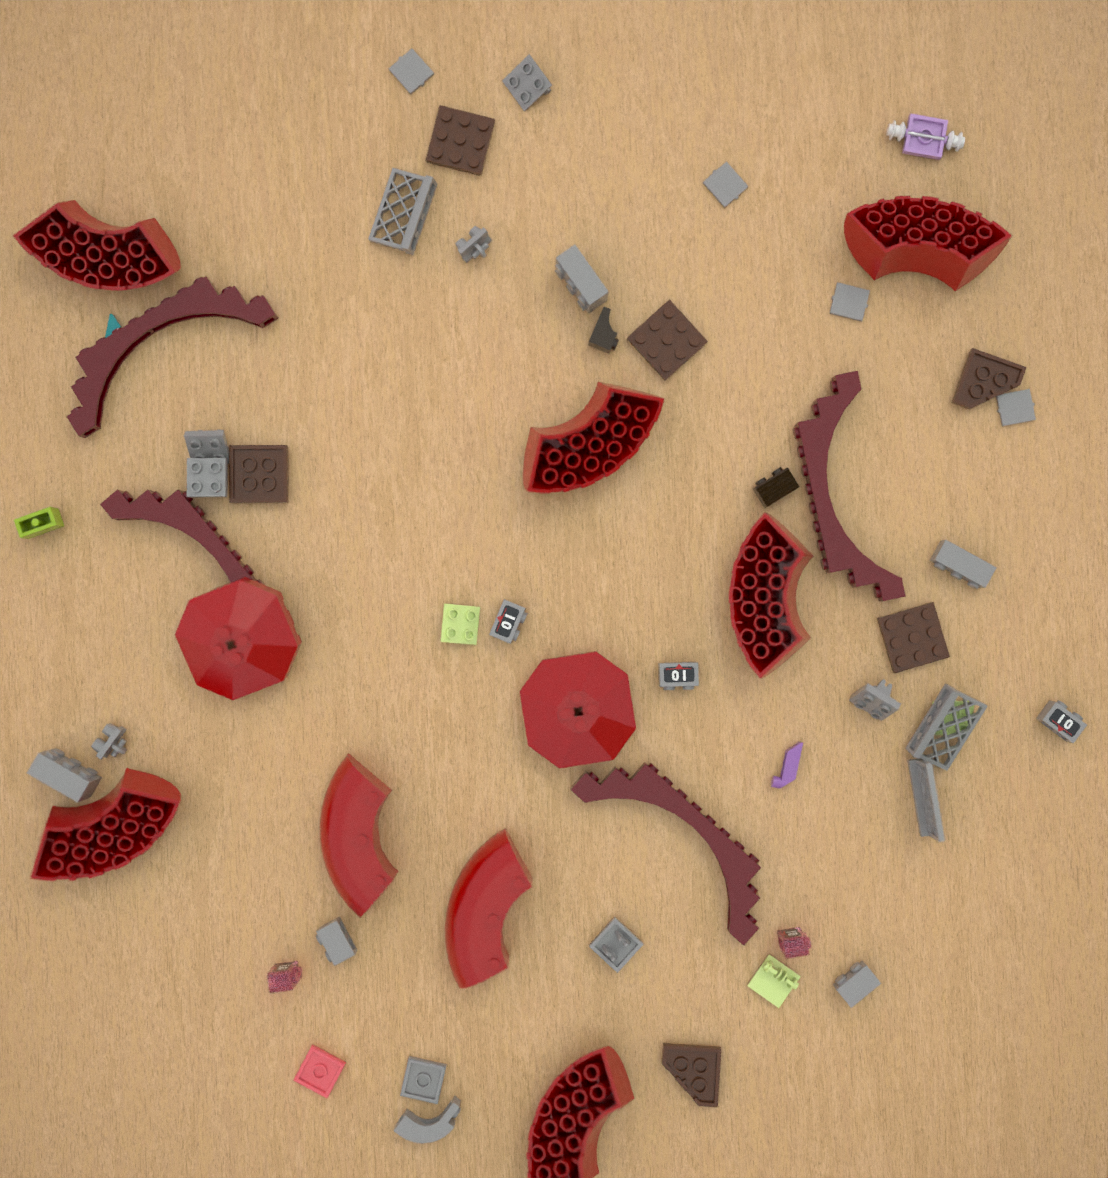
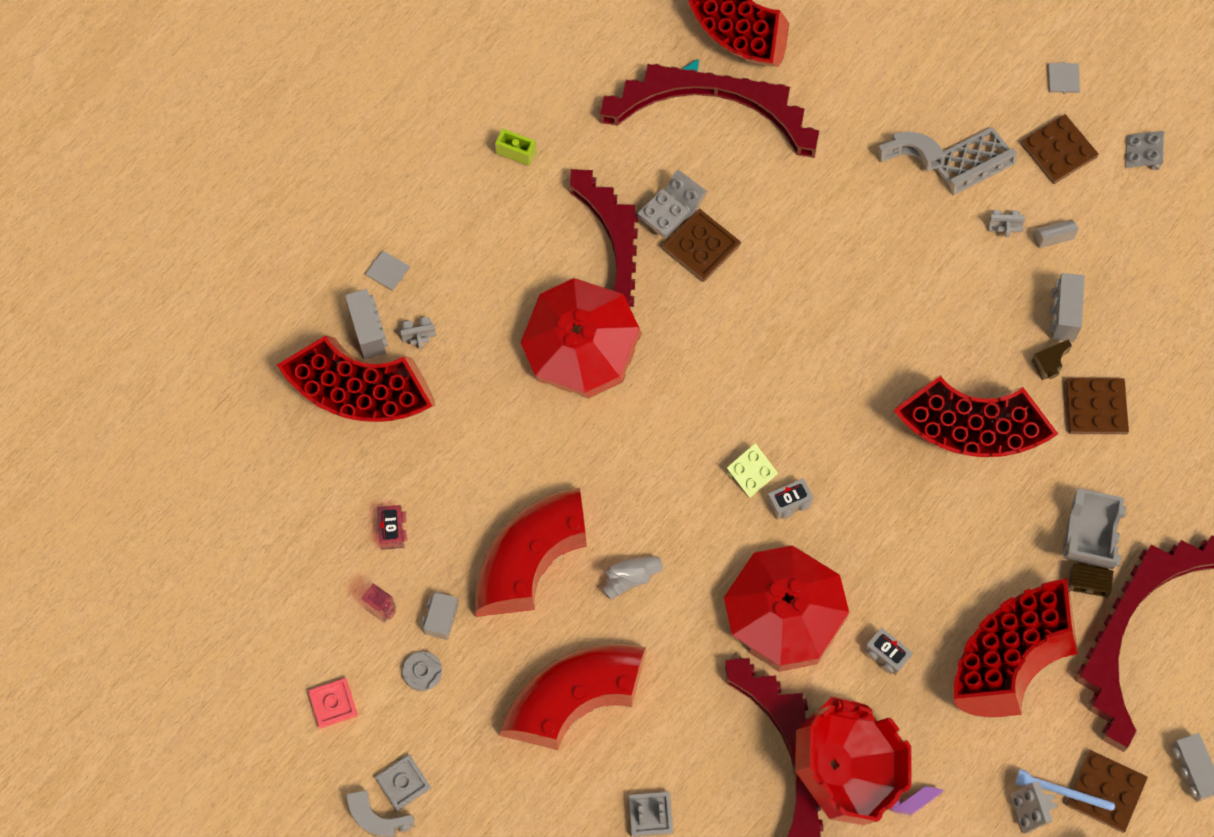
camera: 45 degrees right, 20 degrees down
(38, 711) = (387, 270): none -> light grey piece
(237, 909) = (391, 527): none -> clear pink brick
(347, 239) = (915, 145): none -> light grey arch
(361, 990) = (422, 671): none -> light grey tile
(445, 786) = (630, 574): none -> light grey animal
(518, 219) = (1055, 233): none -> light grey brick
(744, 786) = (869, 757): none -> red windscreen
(749, 450) = (1093, 529): none -> light grey cylinder
(851, 681) = (1025, 778): none -> light blue piece

